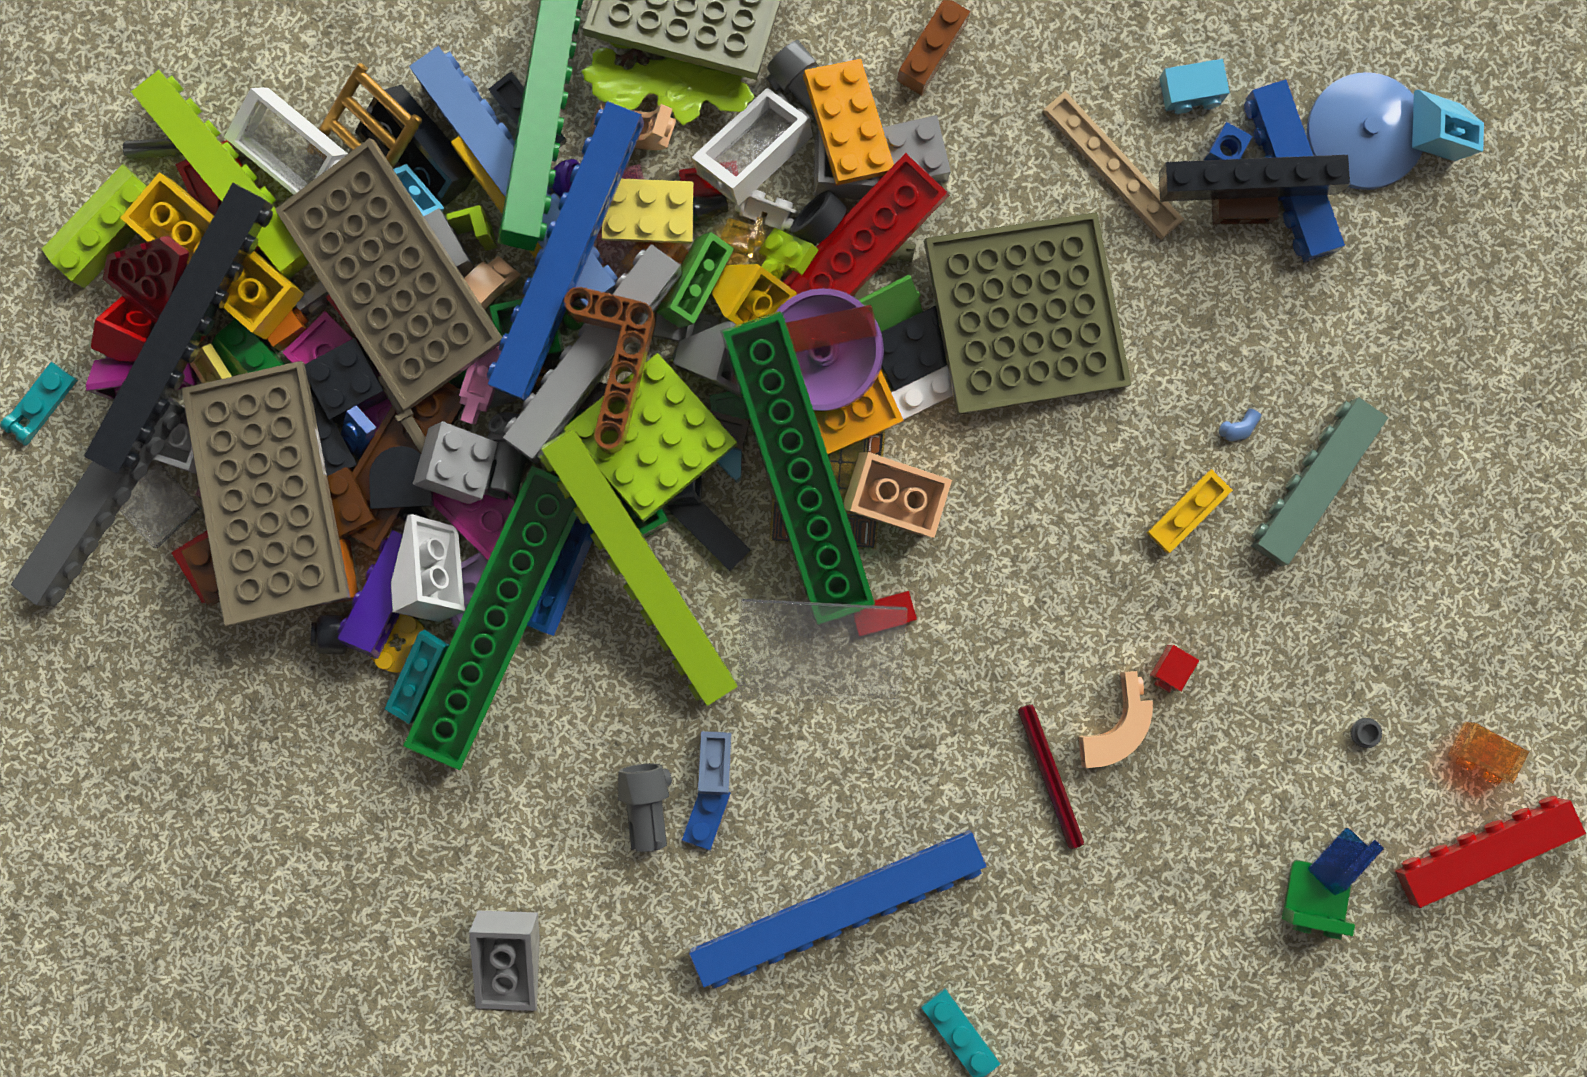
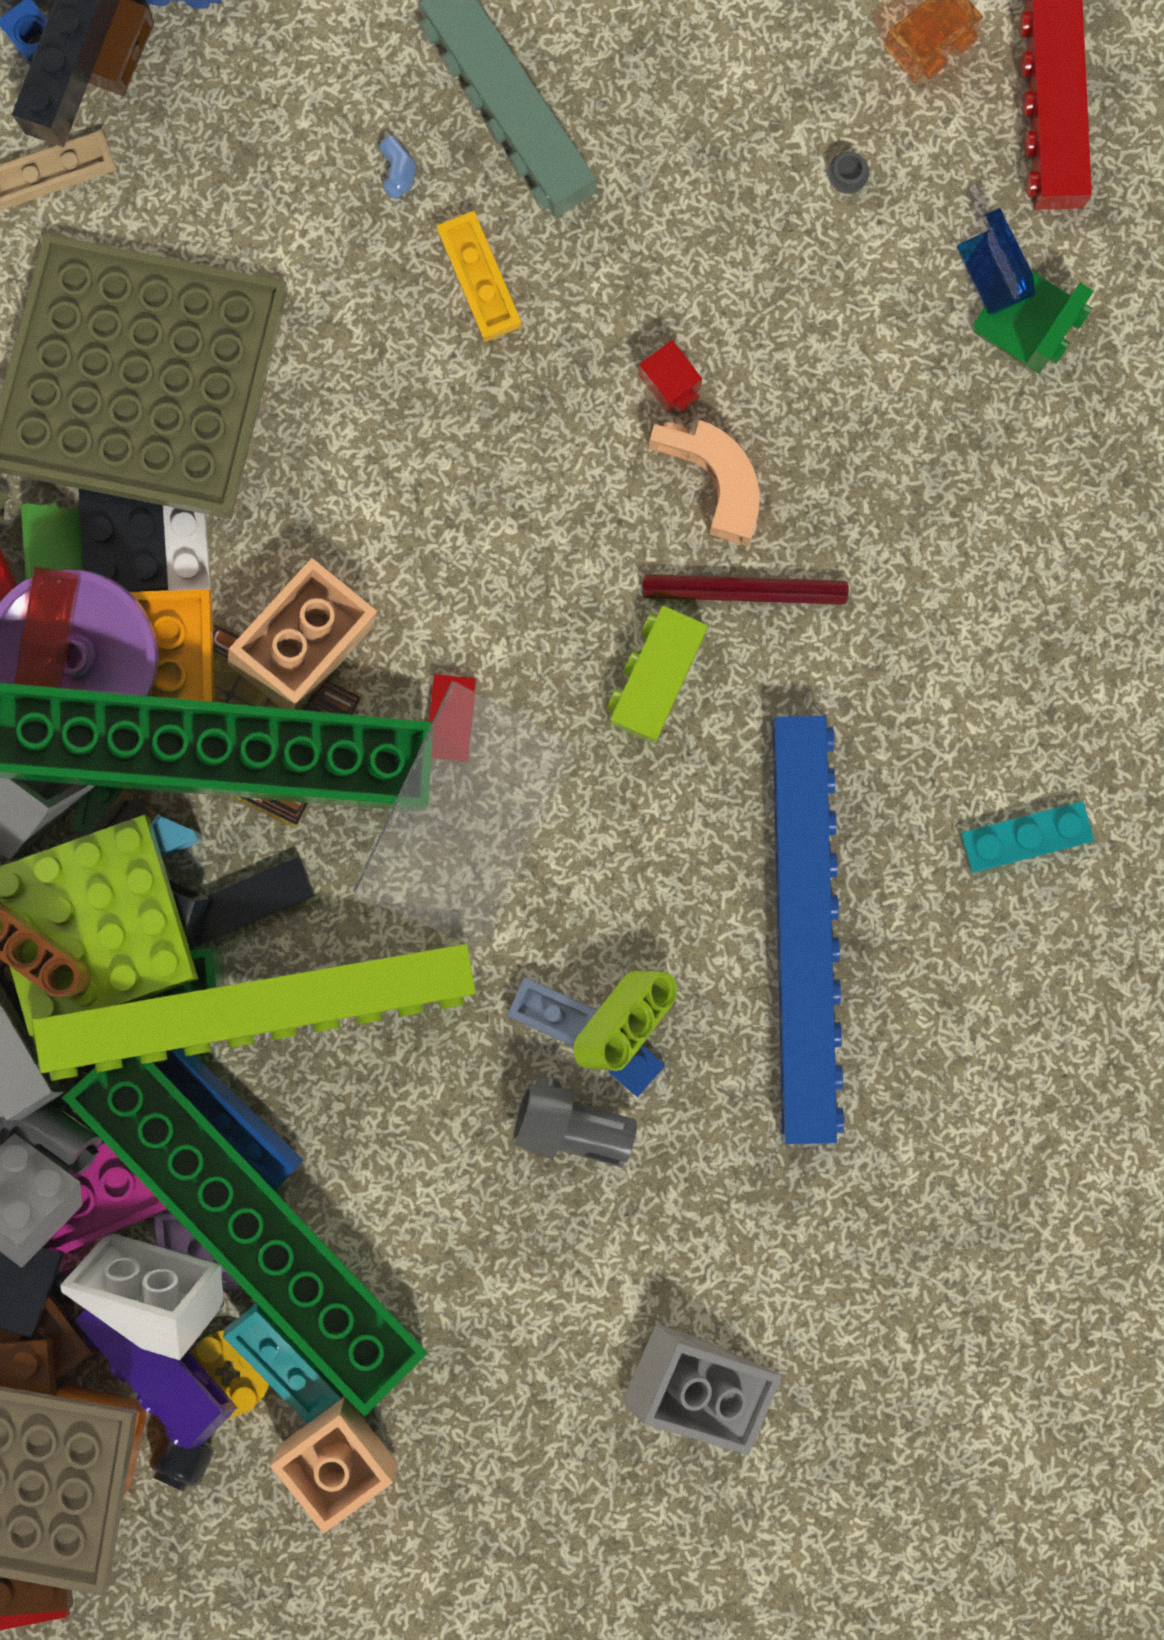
camera: 65 degrees left, 0 degrees up
(364, 737) = (334, 1465): none -> light nougat brick
(729, 813) = (625, 1020): none -> lime beam
(969, 740) = (656, 673): none -> lime brick

